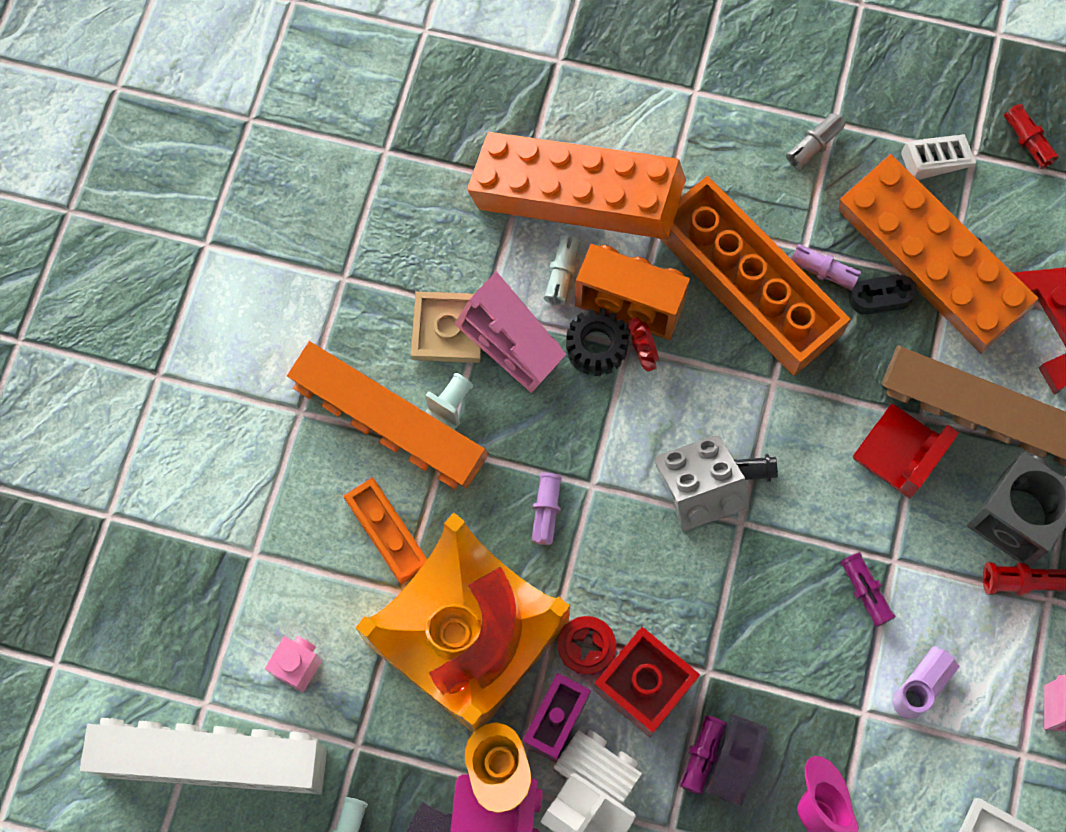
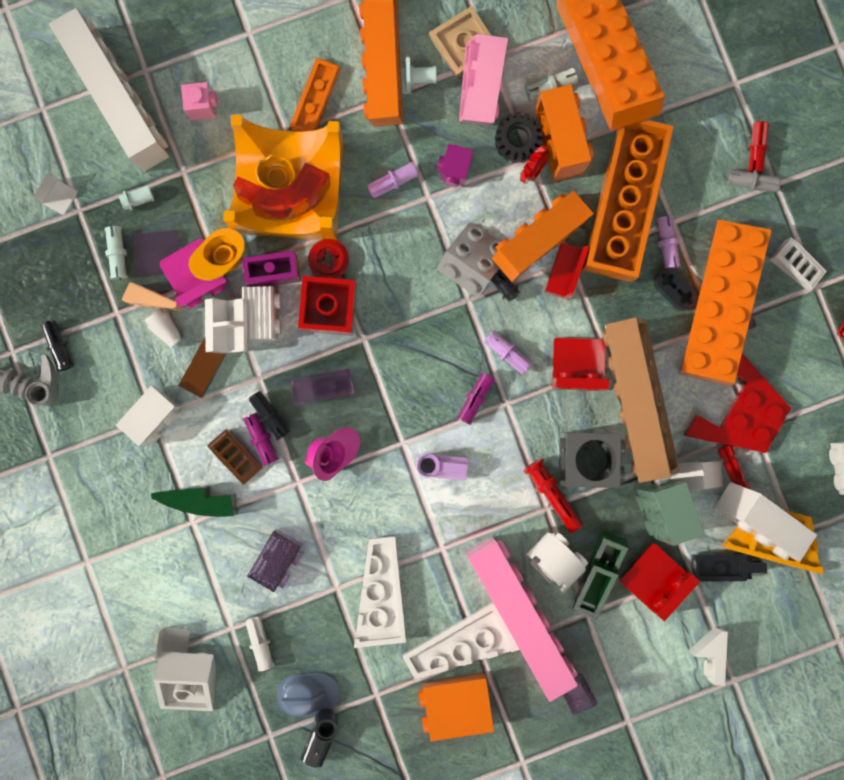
camera: 50 degrees right, 15 degrees up
(580, 429) = (454, 165): none -> magenta brick
(703, 755) = (311, 366): magenta pin -> none
(731, 389) = (542, 235): none -> orange brick
(782, 112) = (758, 147): none -> red axle
(785, 391) = (566, 271): none -> red panel
(836, 517) = (508, 352): none -> lavender axle

